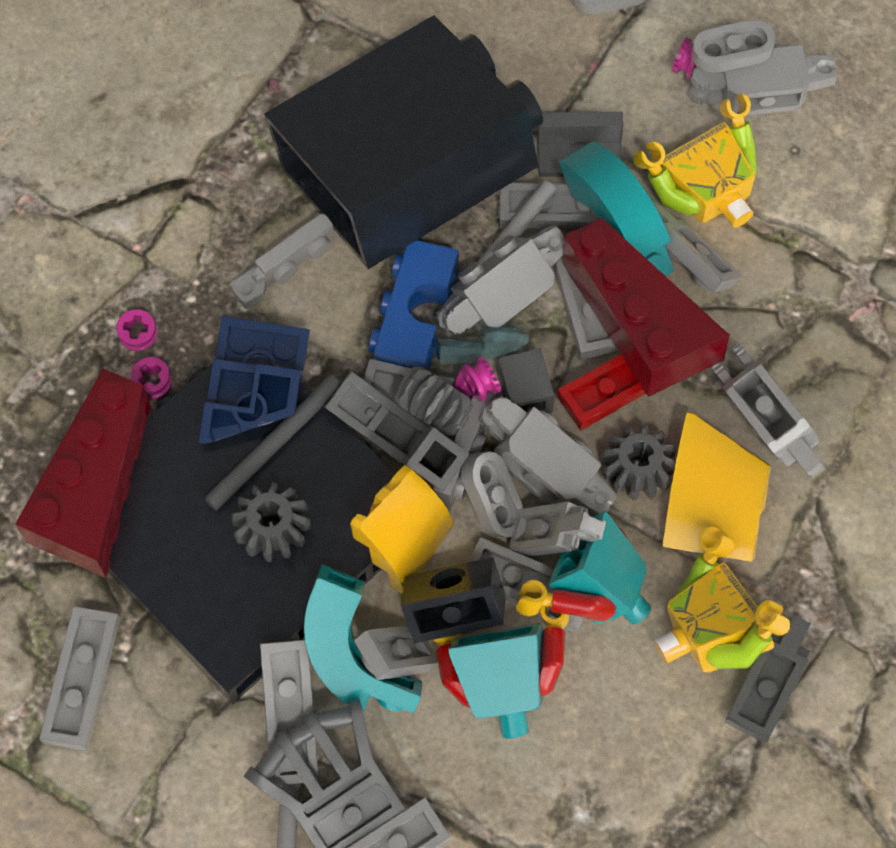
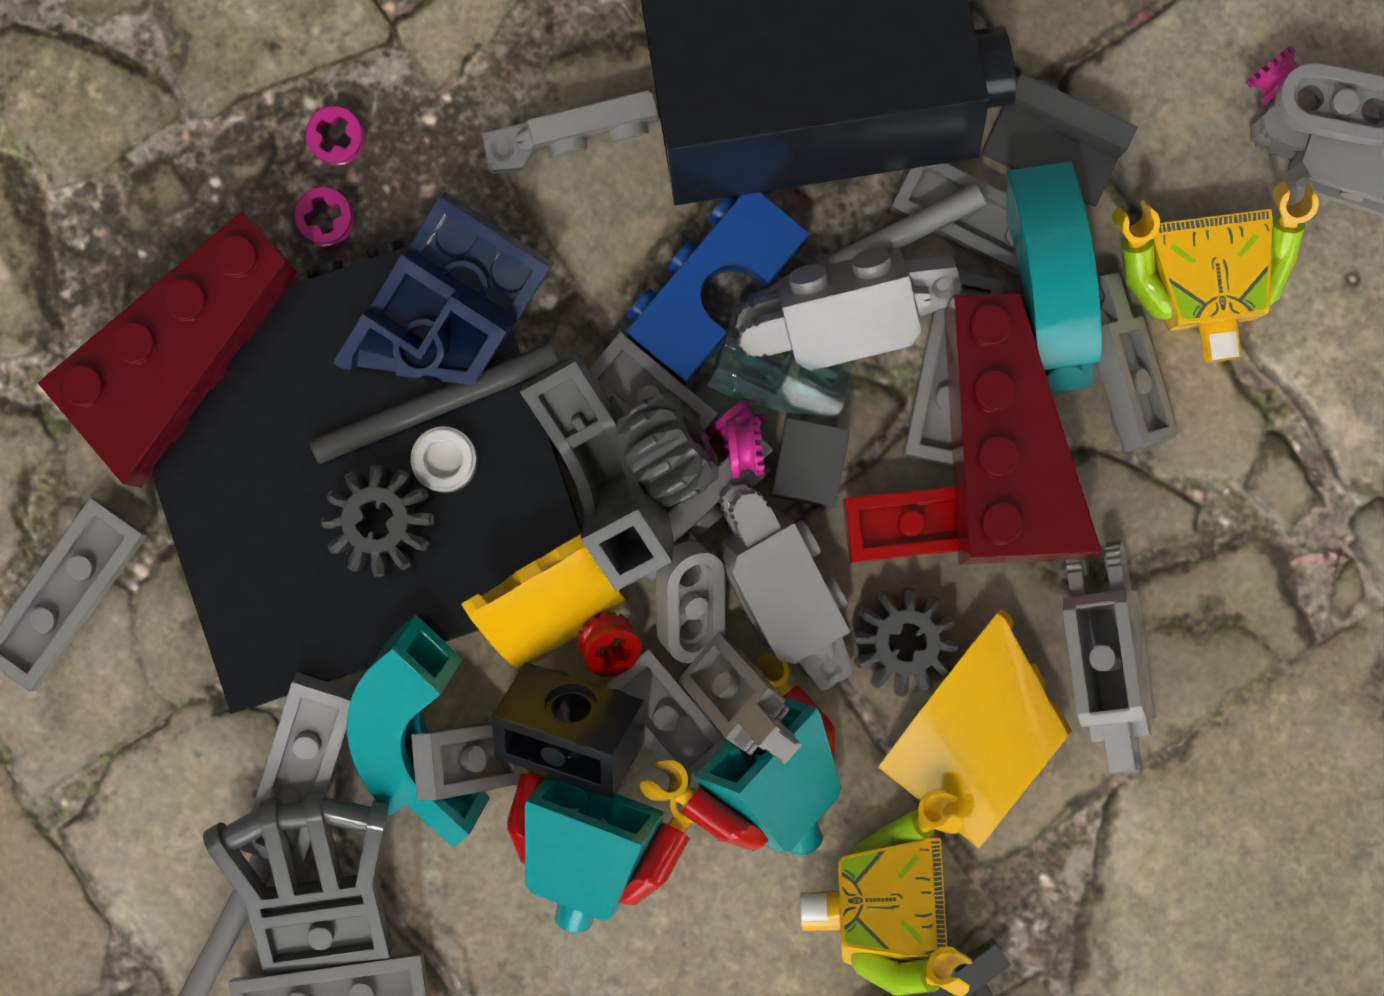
camera: 25 degrees right, 20 degrees up
(296, 470) = (444, 459): none -> white tile
(449, 531) = (602, 633): none -> red bush

